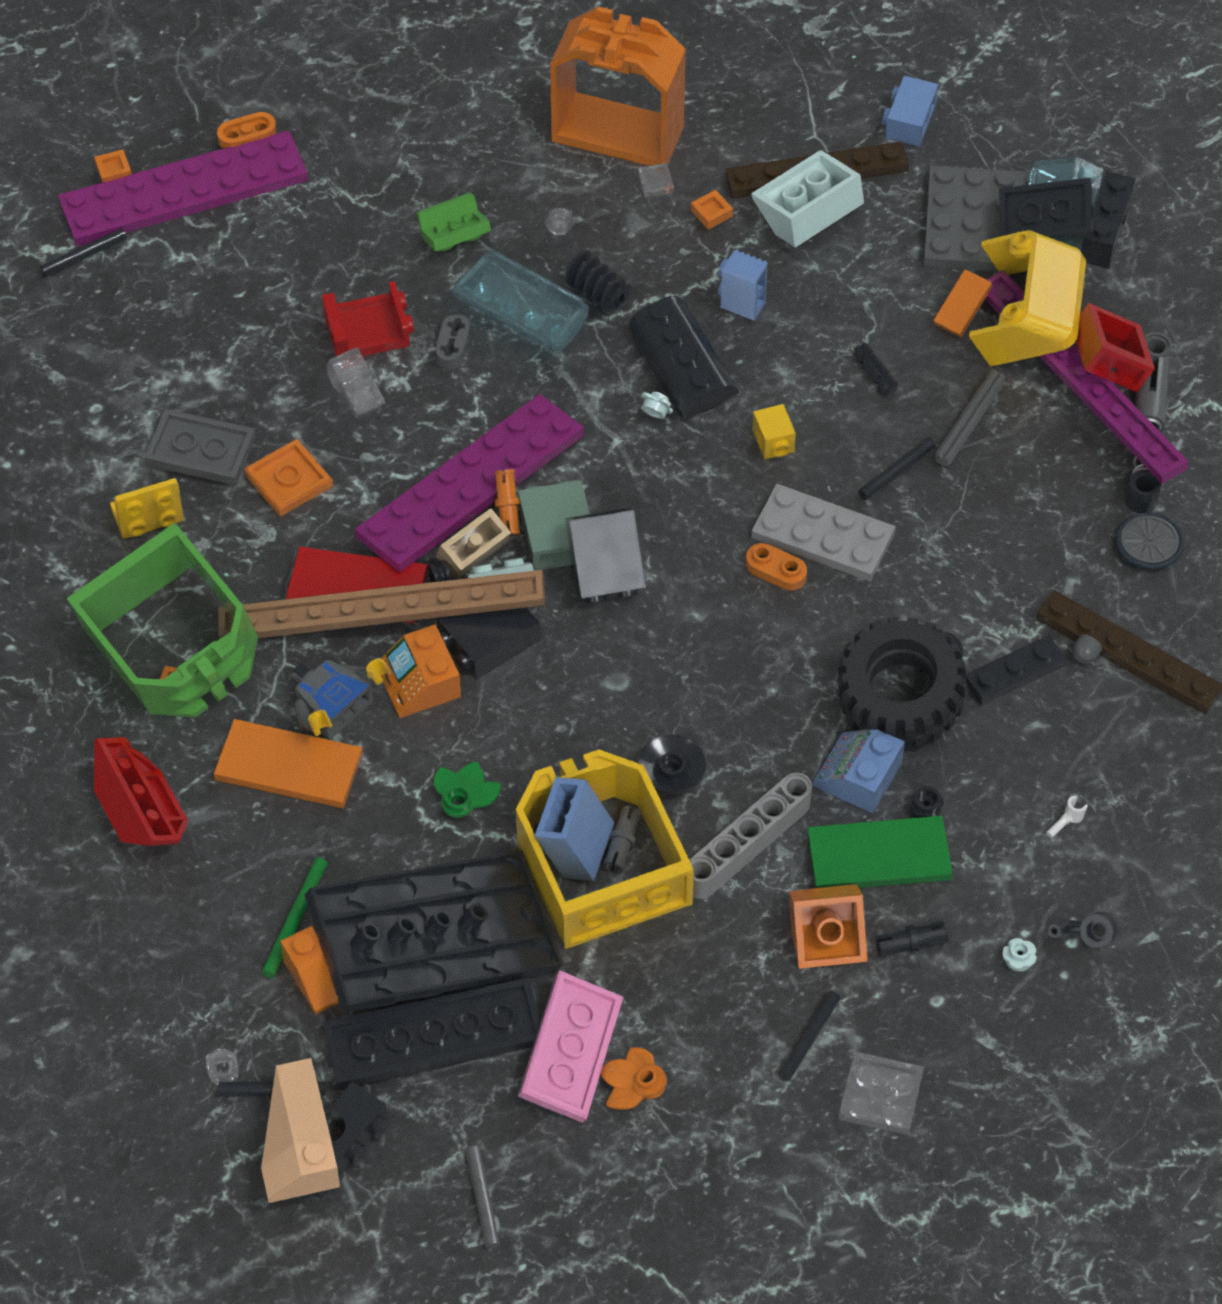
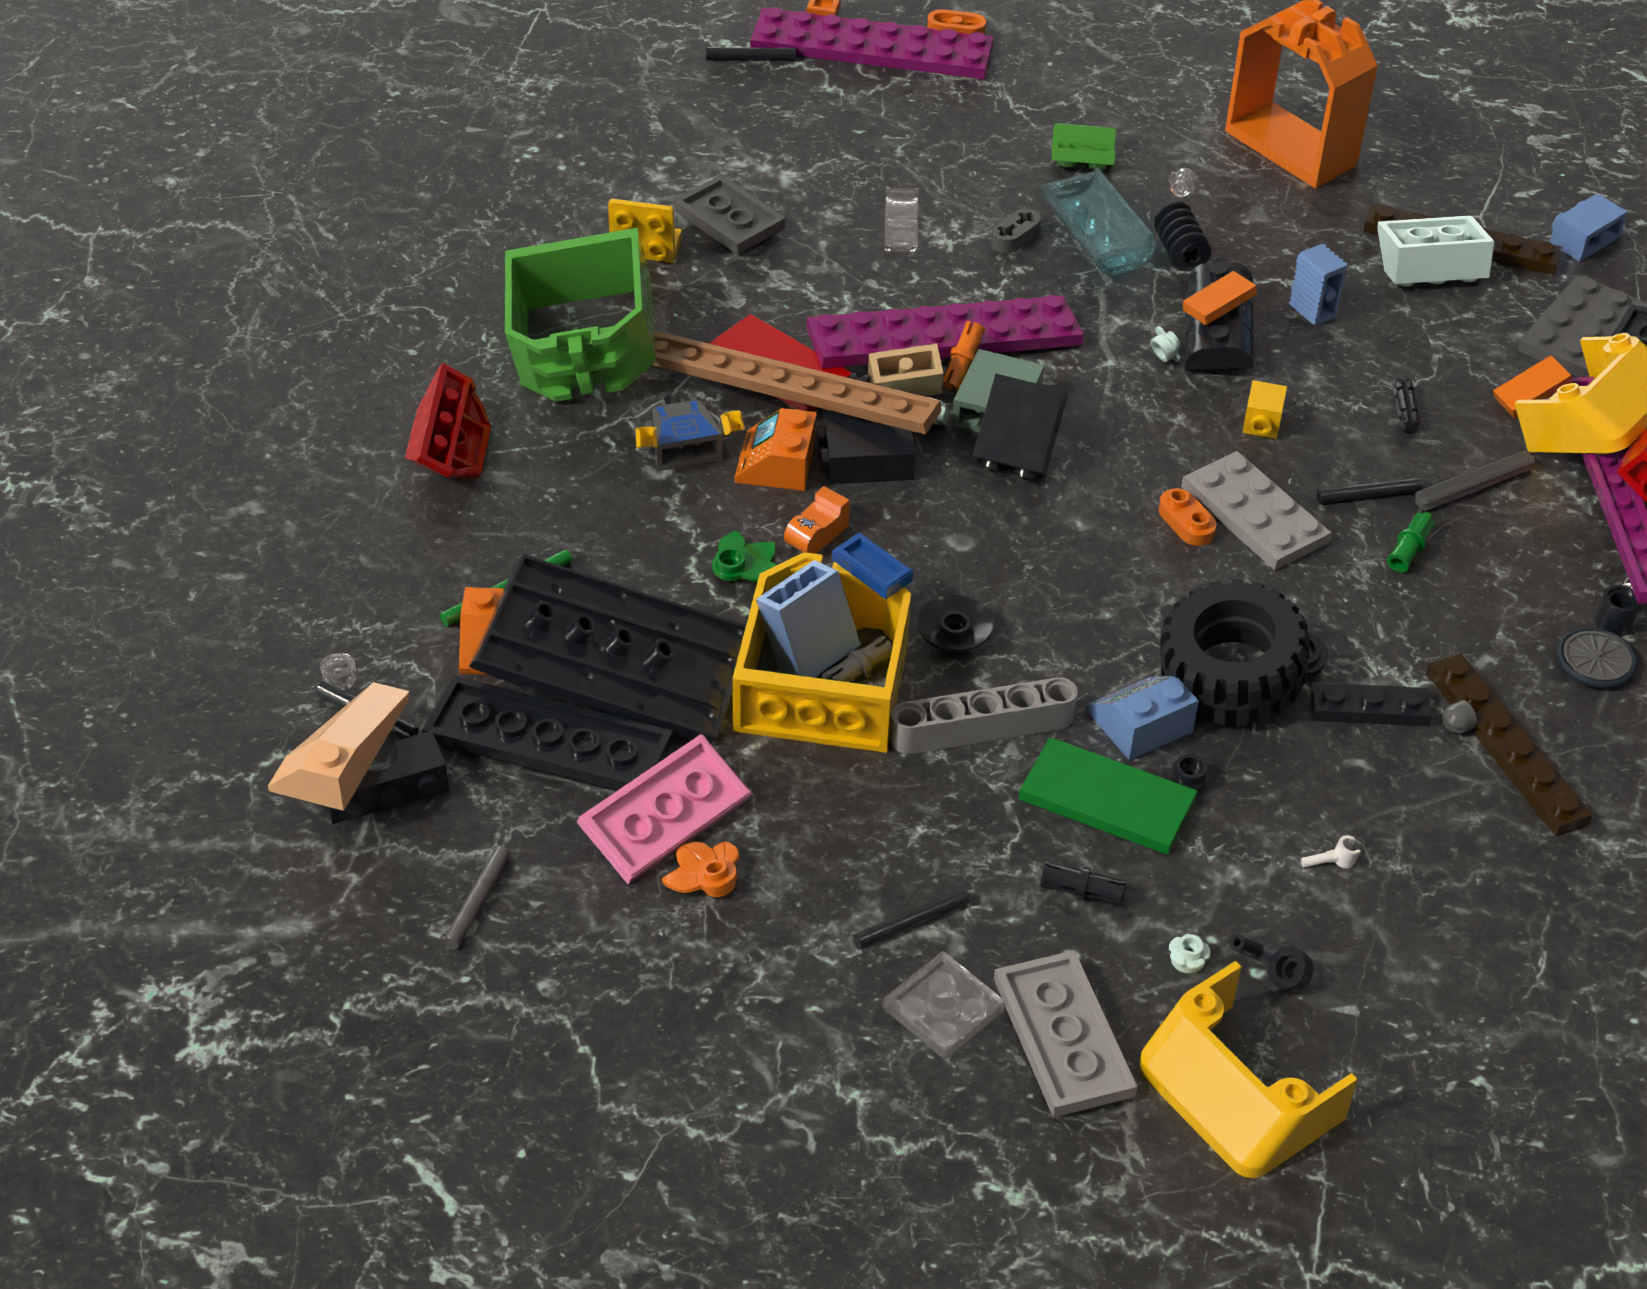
camera: 30 degrees right, 10 degrees down
(288, 477) = (788, 267): orange tile -> none
(288, 763) = (605, 470): orange tile -> none
(368, 323) = (949, 189): red panel -> none
(501, 724) = (819, 522): none -> orange leg
(599, 756) = (872, 565): none -> blue tile
(655, 180) = (1299, 189): clear tile -> none
(683, 344) = (1219, 297): none -> orange tile
(711, 209) = (1334, 227): orange plate -> none
(828, 926) = (1002, 829): orange slope -> none
(958, 504) = (1410, 542): none -> green axle
(977, 1067) = (1064, 1034): none -> light grey plate
(1110, 1055) = (1222, 1099): none -> yellow windscreen

